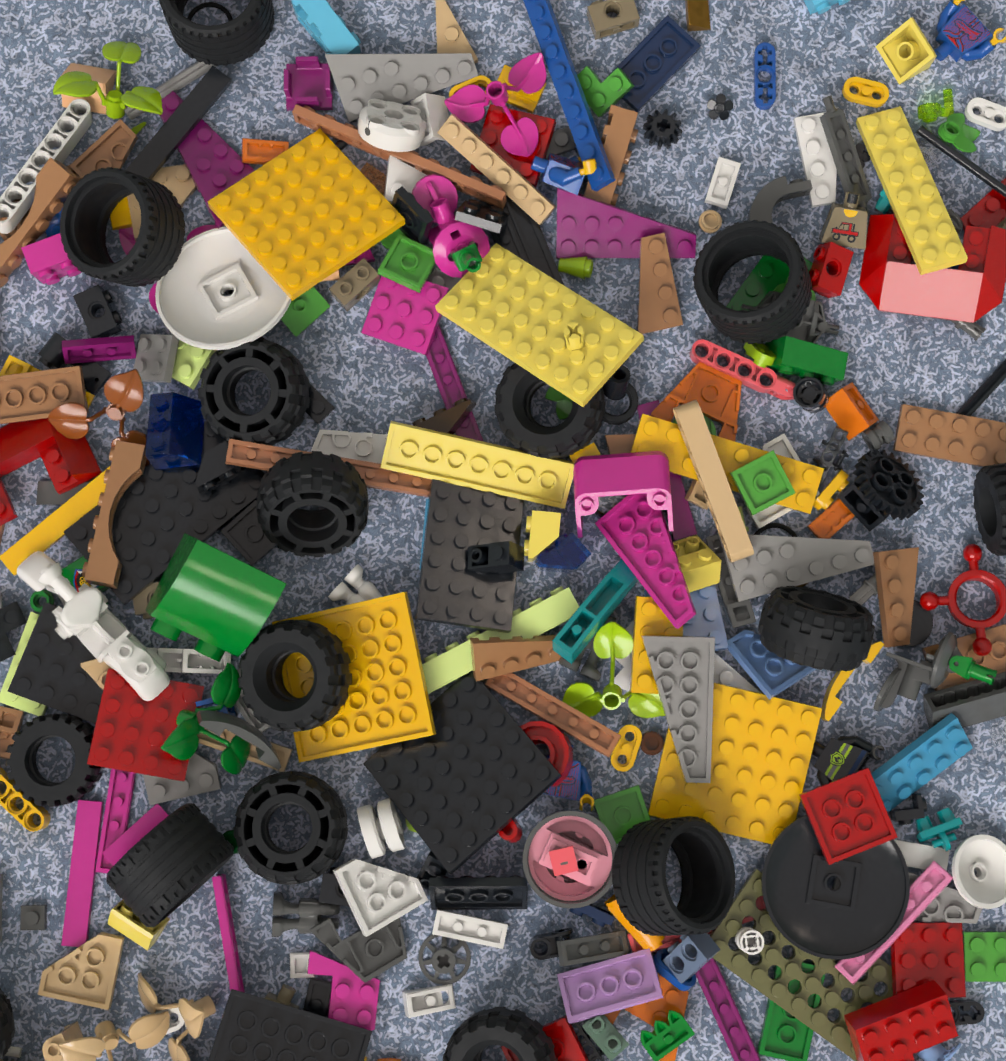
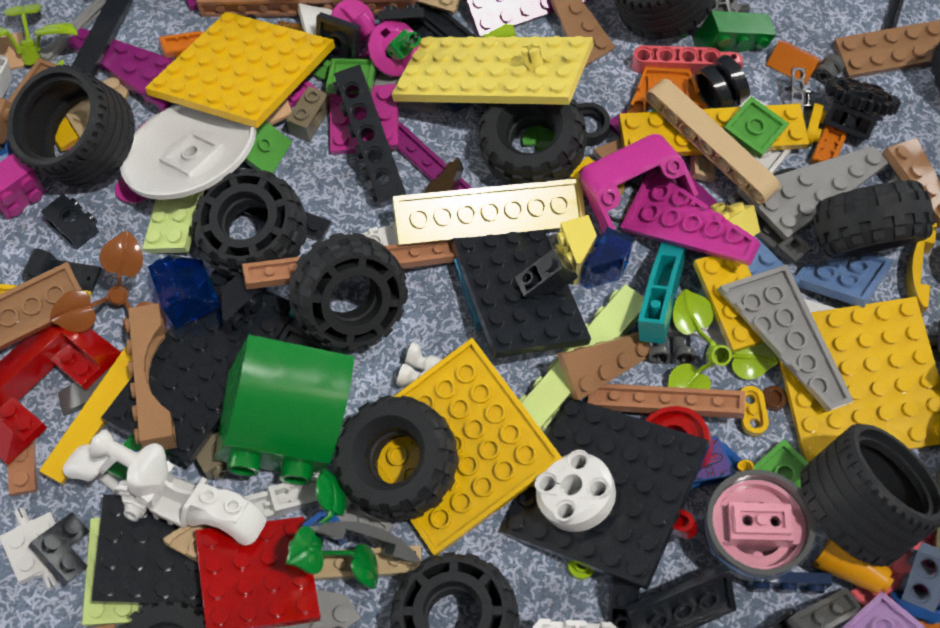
camera: 25 degrees left, 20 degrees down
(34, 600) = (92, 501): green plate -> none
(99, 349) = (79, 248): magenta plate -> none
(156, 357) = (146, 230): light grey plate -> none
(385, 826) = (550, 581): white wheel -> none
(408, 281) = (346, 82): none -> black brick
(431, 768) = (576, 492): none -> white piece
(563, 860) = (756, 520): coral tile -> none
(618, 383) = (585, 96): black door -> none
(759, 417) = (722, 83): none -> black wheel
(760, 353) = (694, 39): lime plate -> none
(811, 395) = (755, 55): black wheel -> none

